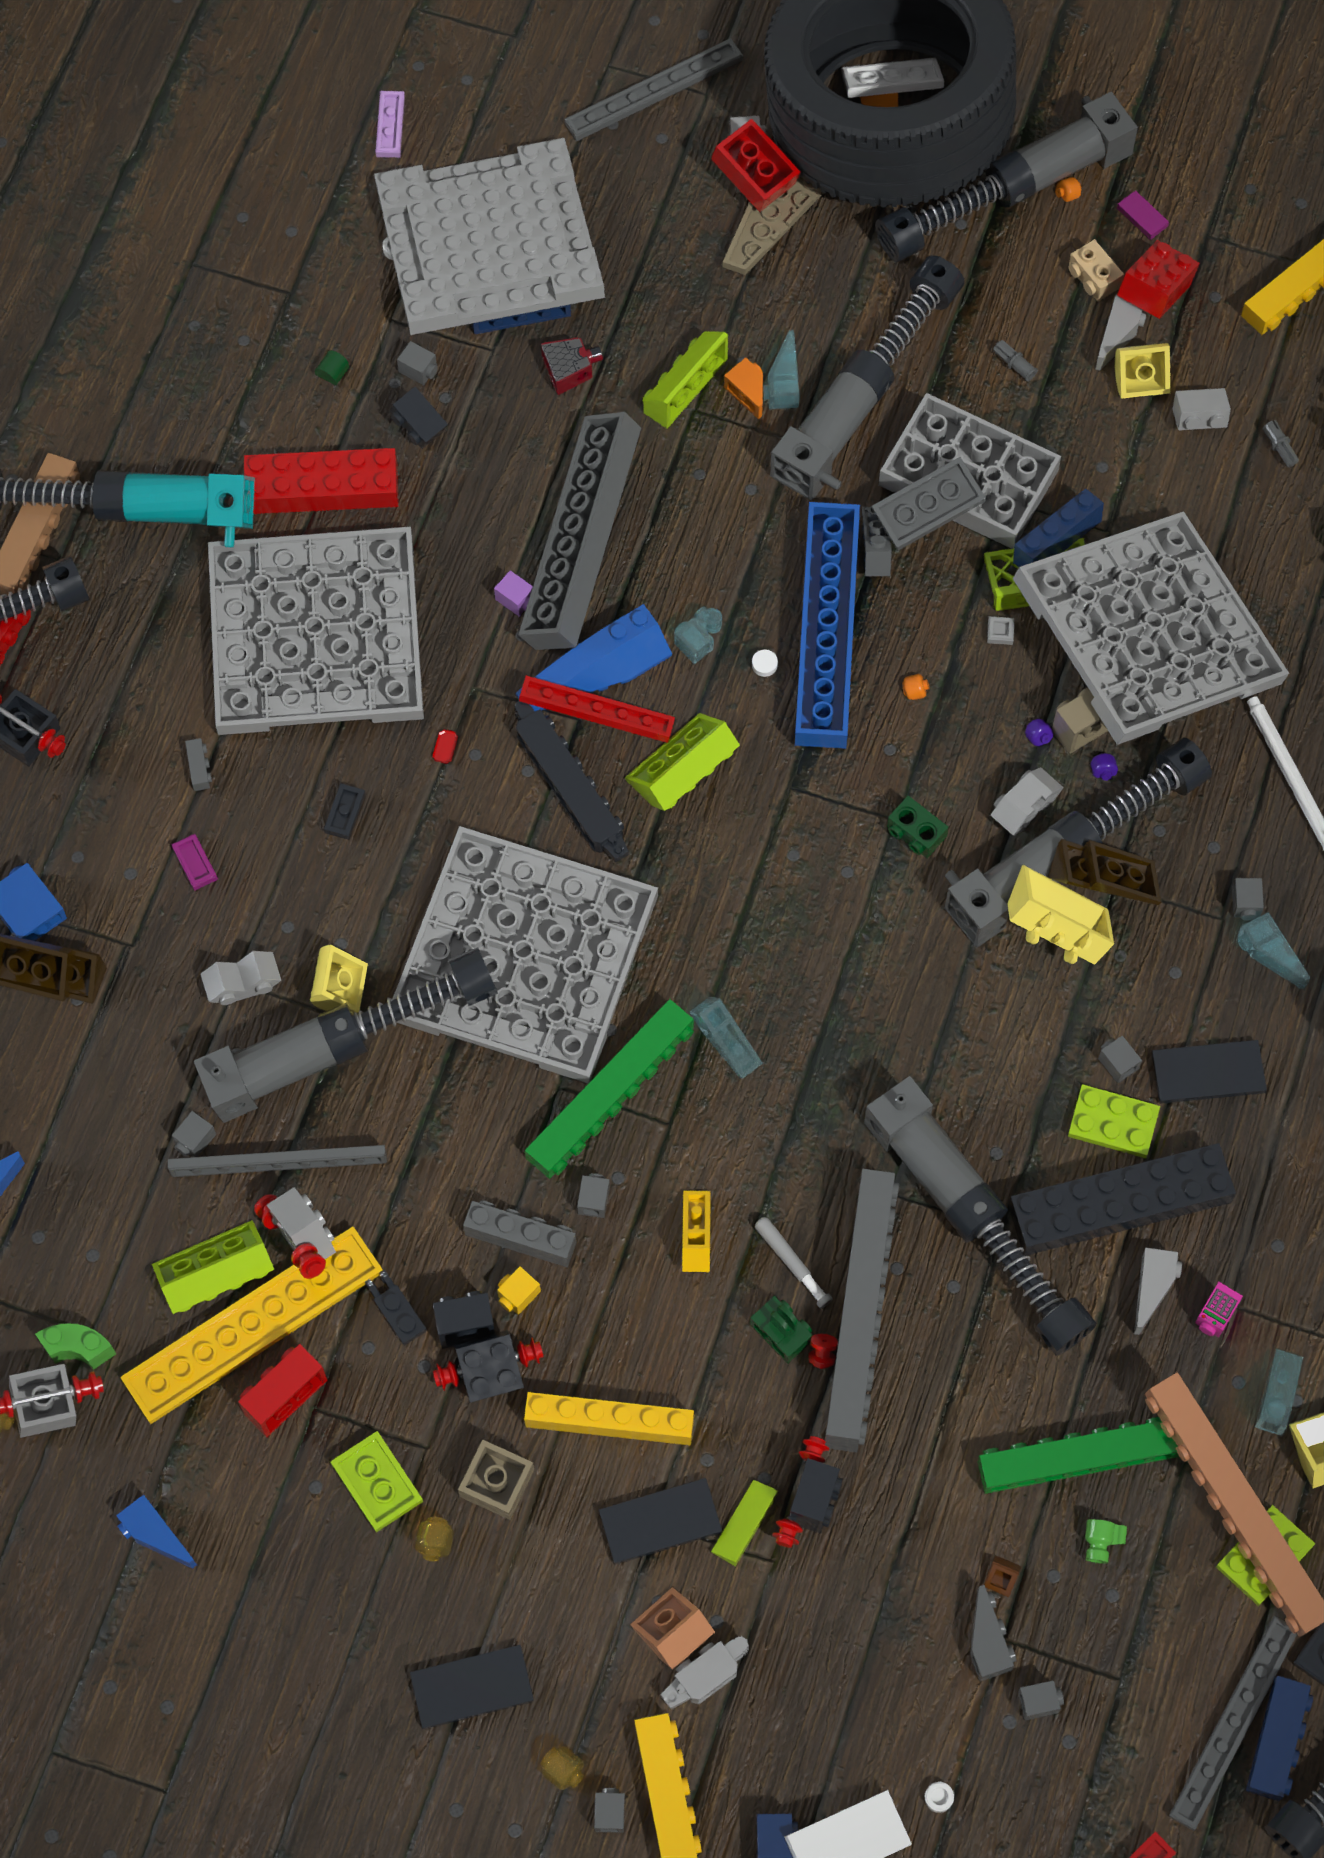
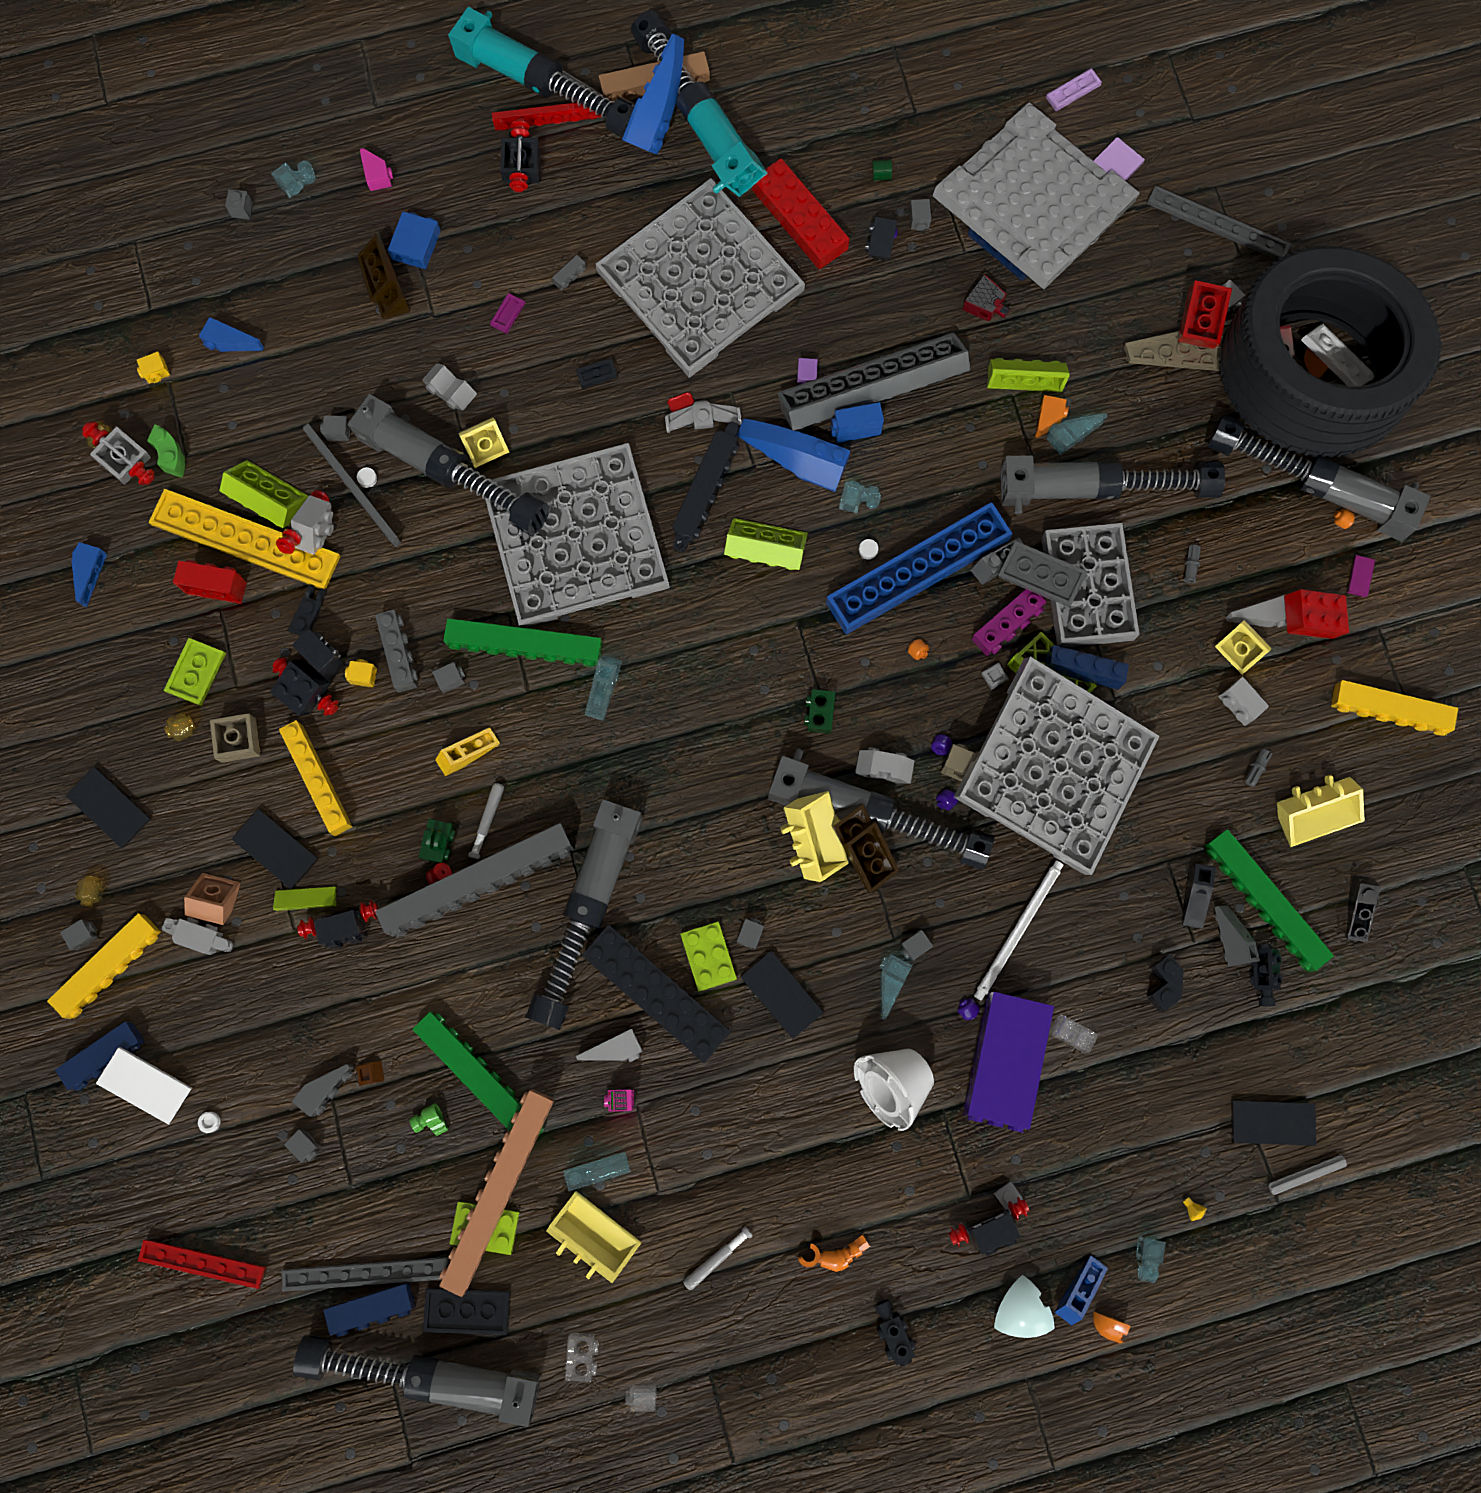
camera: 55 degrees right, 10 degrees up
(87, 544) = (654, 111): none -> blue wedge
(278, 1139) = (367, 477): none -> white tile
(480, 732) = (702, 415): none -> light grey plate
(507, 132) = (1119, 159): none -> lavender tile
(596, 709) = (763, 470): red plate -> none
(615, 577) = (857, 422): none -> blue brick
(950, 576) = (1008, 621): none -> magenta brick
(1095, 270) = (1295, 571): tan brick -> none

